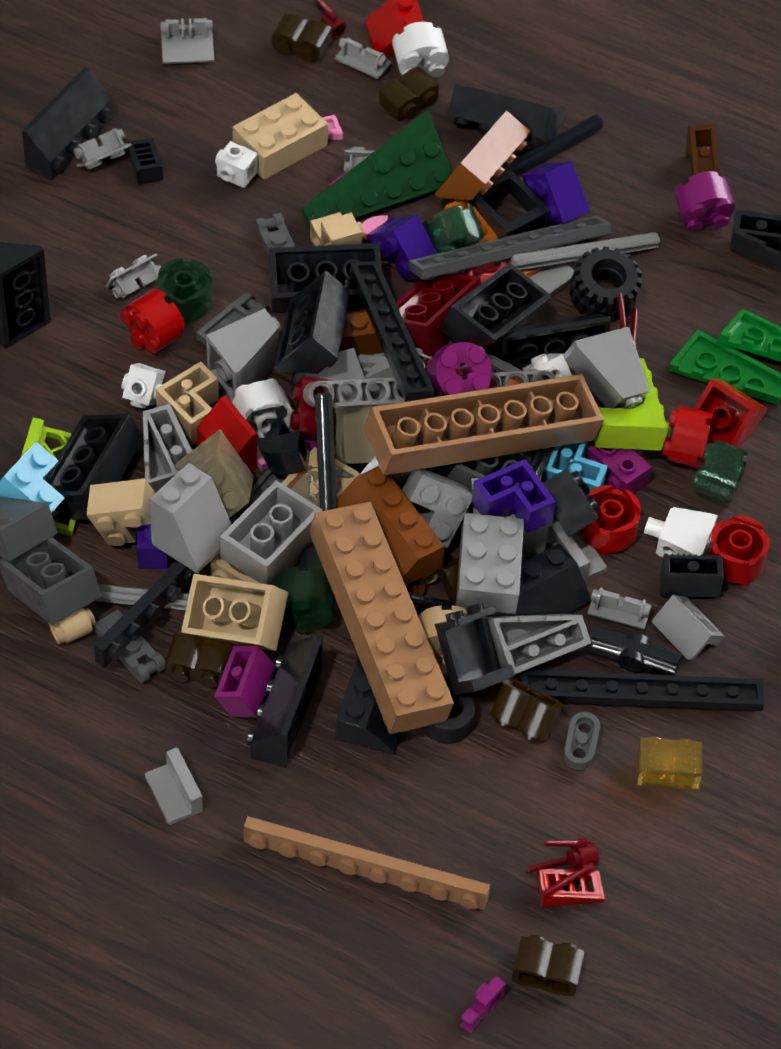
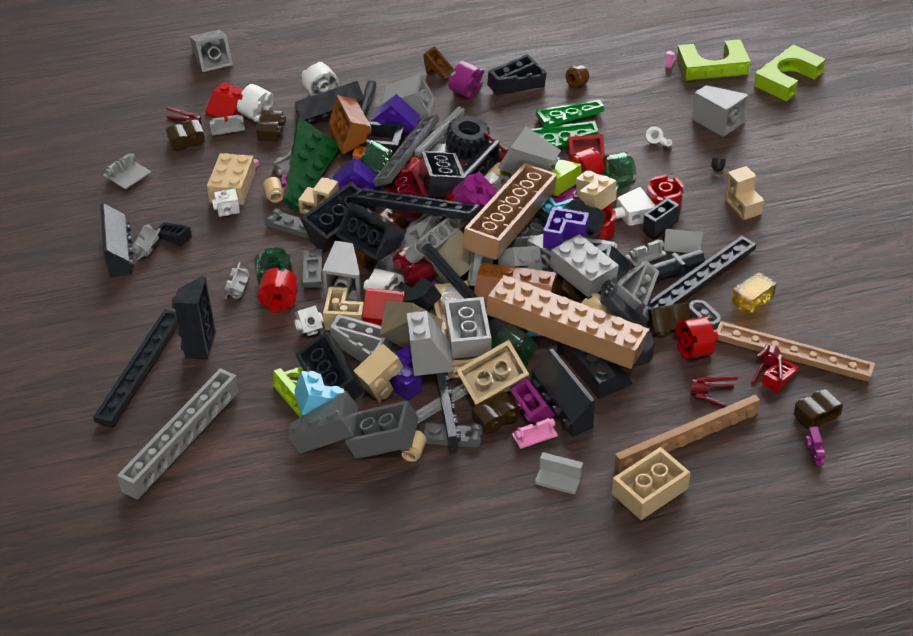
camera: 40 degrees left, 10 degrees down
(210, 720) = (532, 434): none -> bright pink hinge
(243, 882) = (650, 483): none -> tan brick
(310, 184) = (273, 189): none -> tan brick
(456, 823) = (701, 386): none -> dark red plant
(521, 760) = (696, 337): none -> red brick
(527, 74) = (319, 79): none -> white brick
(610, 177) = (413, 92): none -> light grey slope
(623, 877) = (797, 351): none -> medium nougat plate
(633, 481) = (596, 189): none -> tan brick

